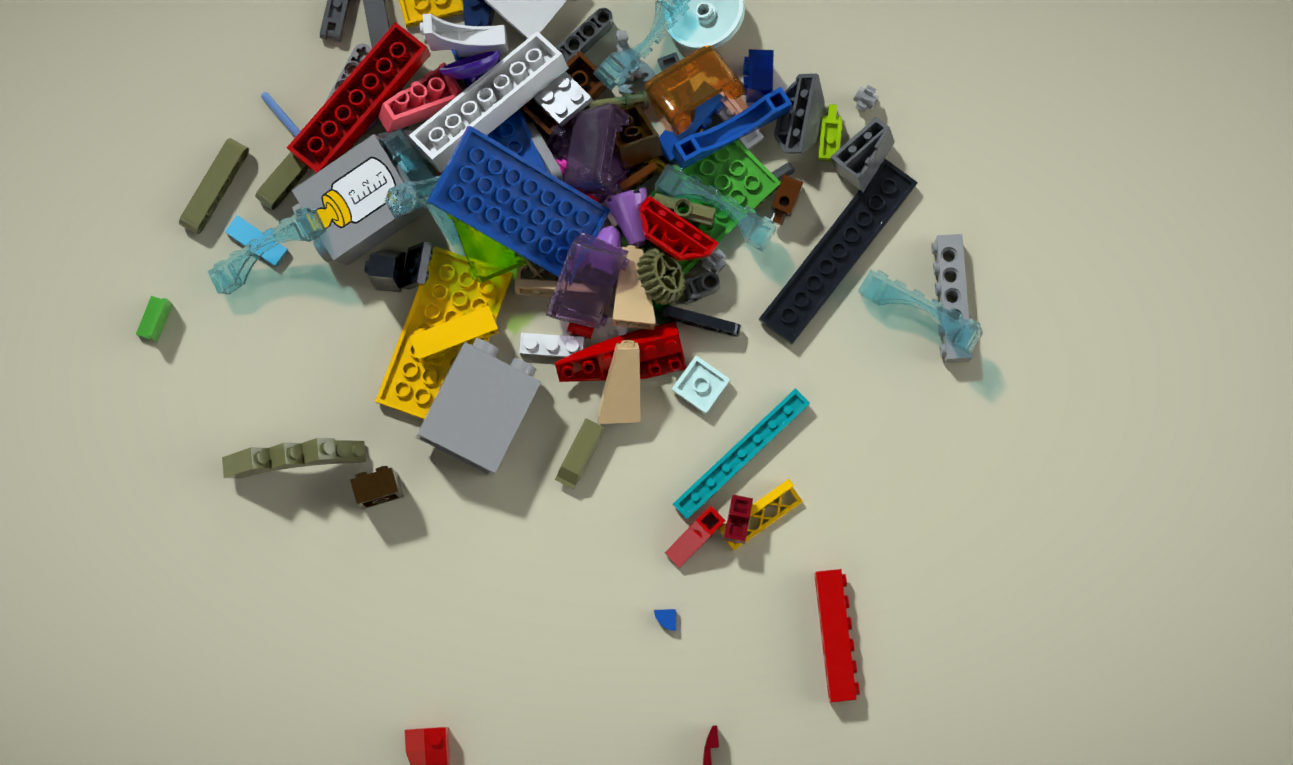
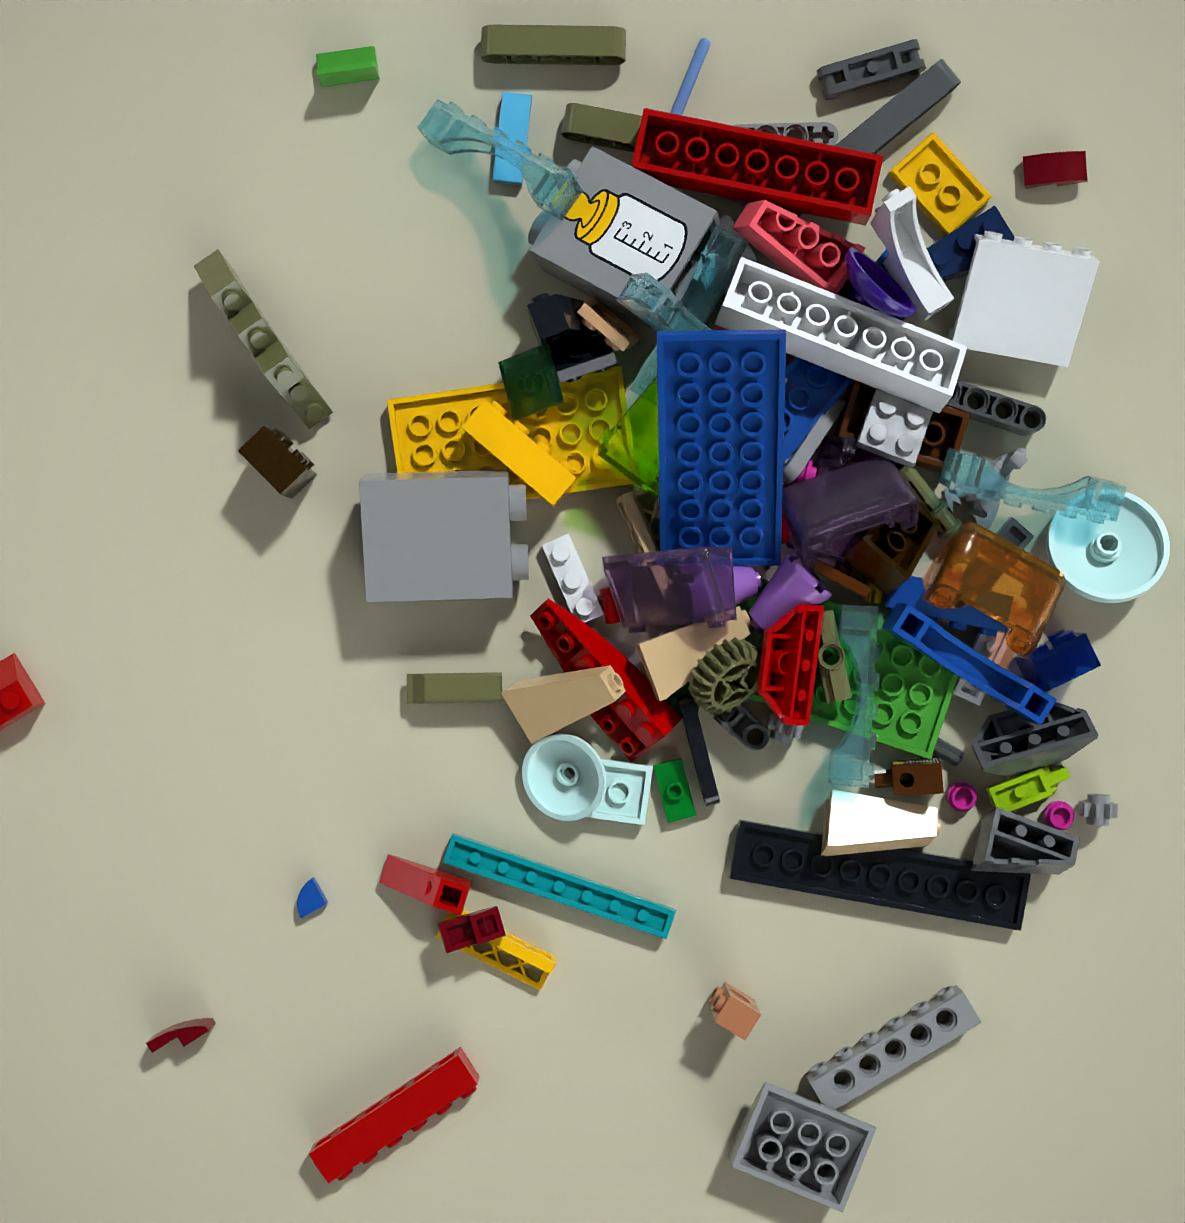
camera: 60 degrees right, 10 degrees up
(413, 236) = (616, 332): none -> light nougat plate
(414, 303) = (531, 382): none -> clear green plate
(668, 425) = (554, 787): none -> light aqua dish
(718, 350) = (674, 790): none -> green plate
(804, 236) = (875, 824): none -> slope
(815, 177) = (961, 796): none -> dark pink plate
(857, 123) = (1058, 815): none -> dark pink plate
(875, 382) = (734, 1010): none -> nougat brick
(882, 291) = (851, 1086): clear light blue arch -> none
(983, 383) = (801, 1146): none -> light grey slope

